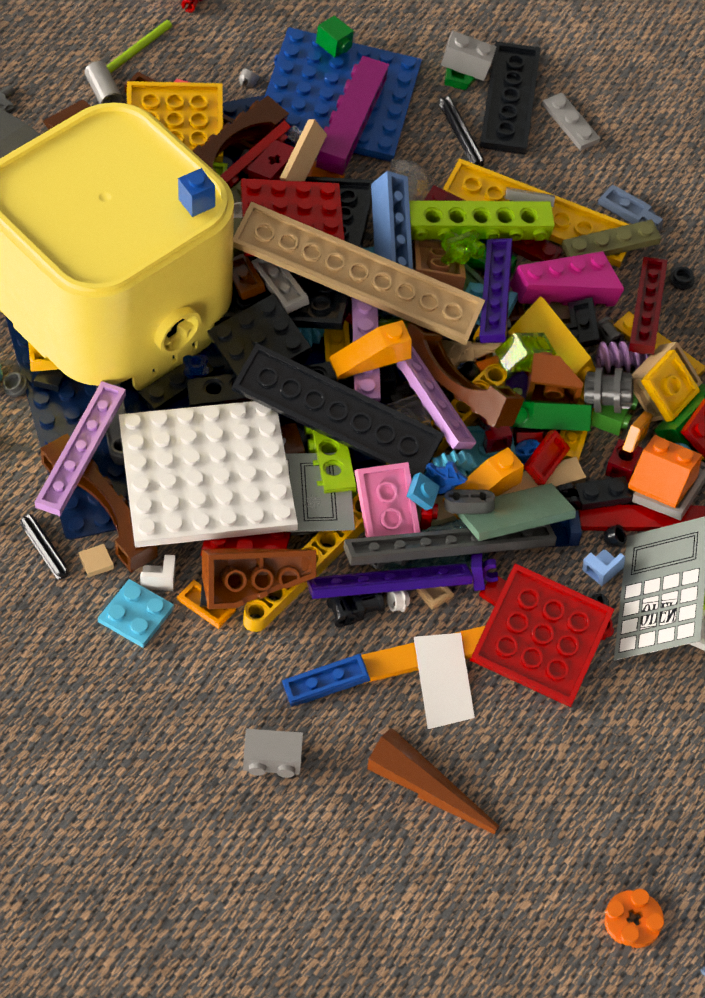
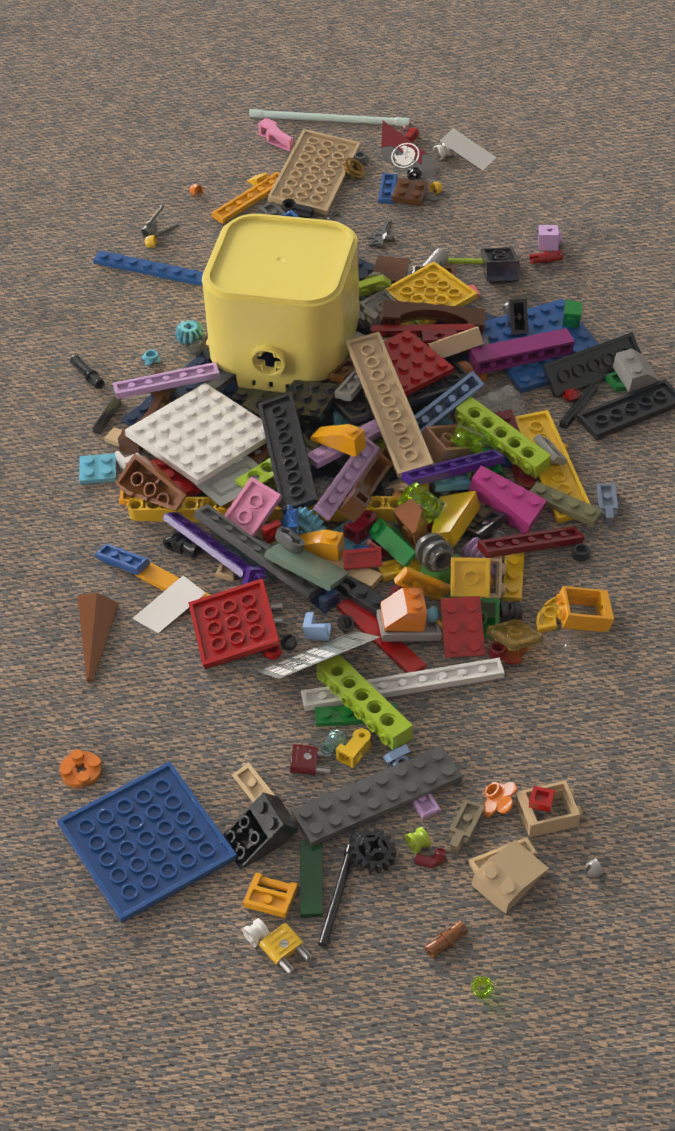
camera: 60 degrees right, 10 degrees down
(169, 33) = (500, 264): none -> black slope
(195, 371) = (270, 392): clear blue plate -> none
(196, 192) = (310, 278): blue brick -> none
(272, 752) = (54, 563): light grey brick -> none
(298, 81) = (518, 316): none -> black slope
(400, 597) = (204, 558): white plate -> none
(421, 78) = (586, 365): none -> black plate
(423, 491) = (272, 514): dark azure plate -> none
(442, 125) = (571, 394): none -> red plate
(571, 121) = (647, 443): light grey plate -> none

